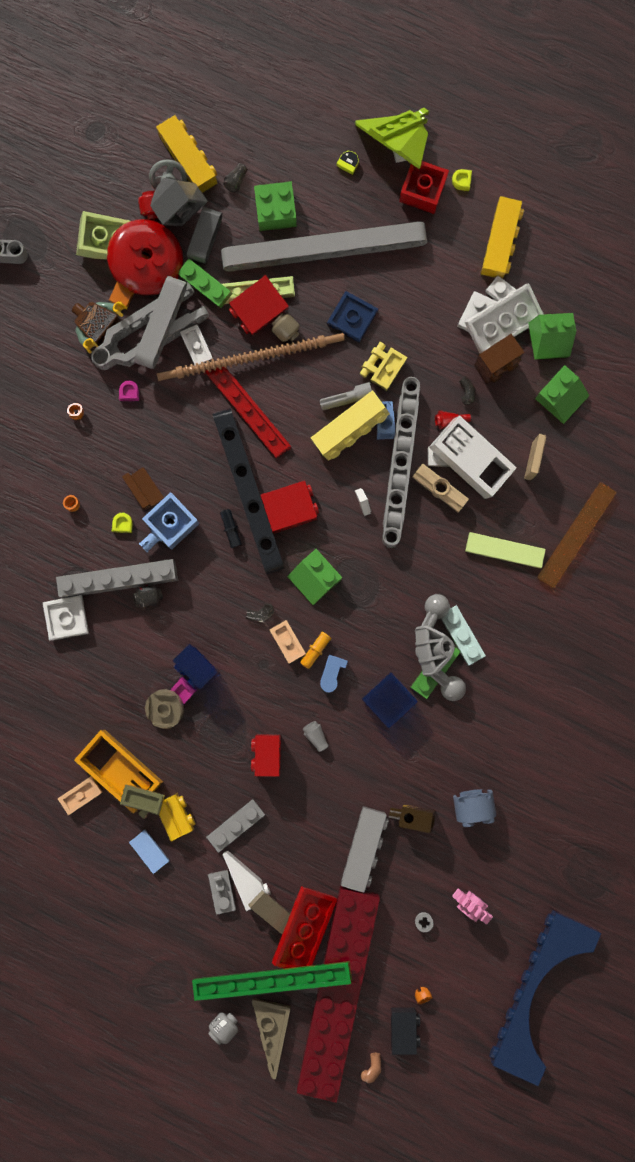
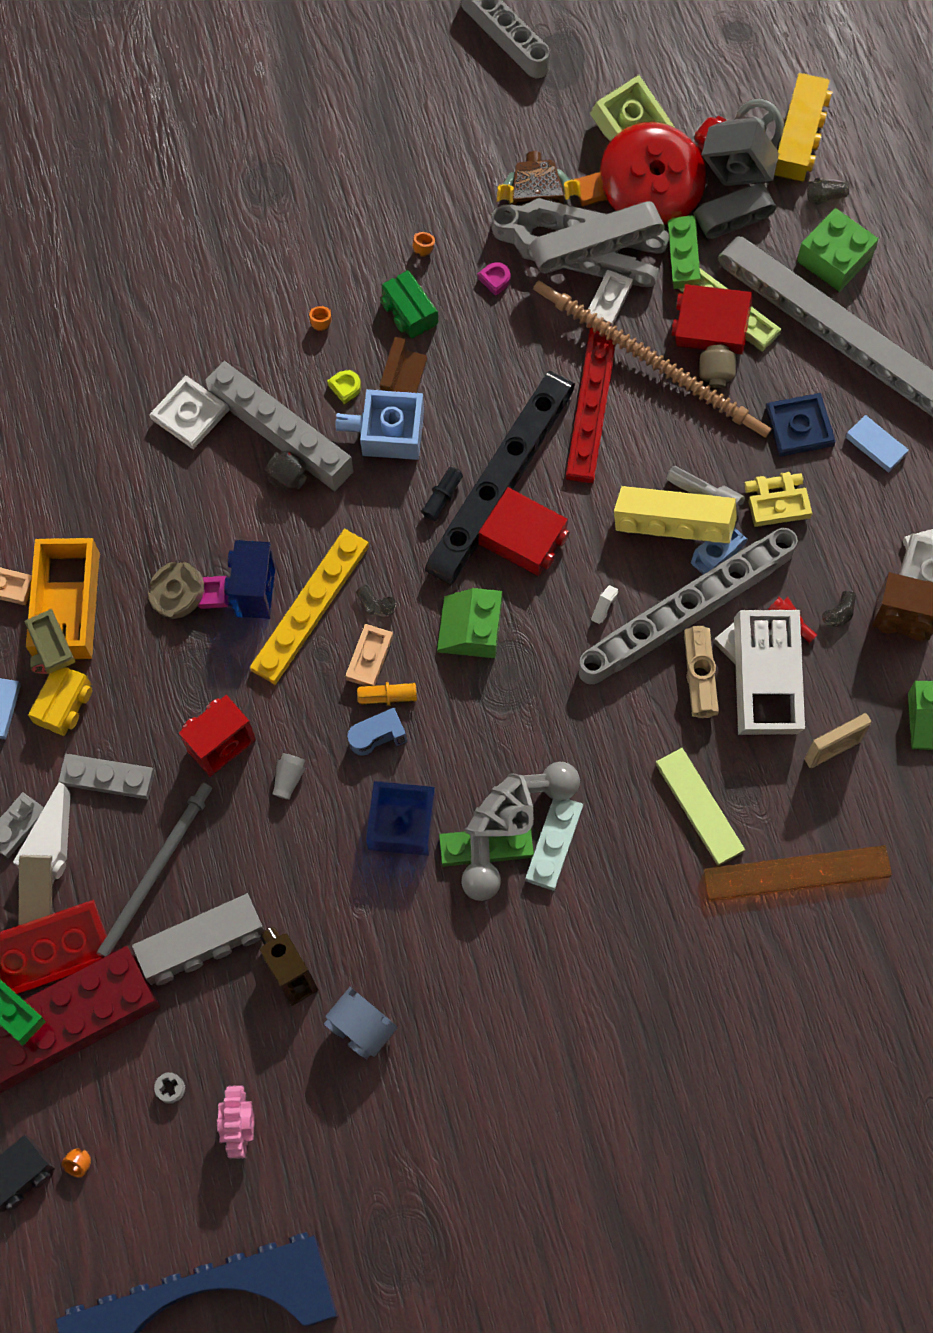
camera: 50 degrees right, 15 degrees down
(106, 451) = (409, 305): none -> green brick
(232, 647) = (309, 606): none -> yellow plate
(290, 792) = (196, 804): none -> dark grey bar
(396, 289) = (877, 443): none -> light blue tile

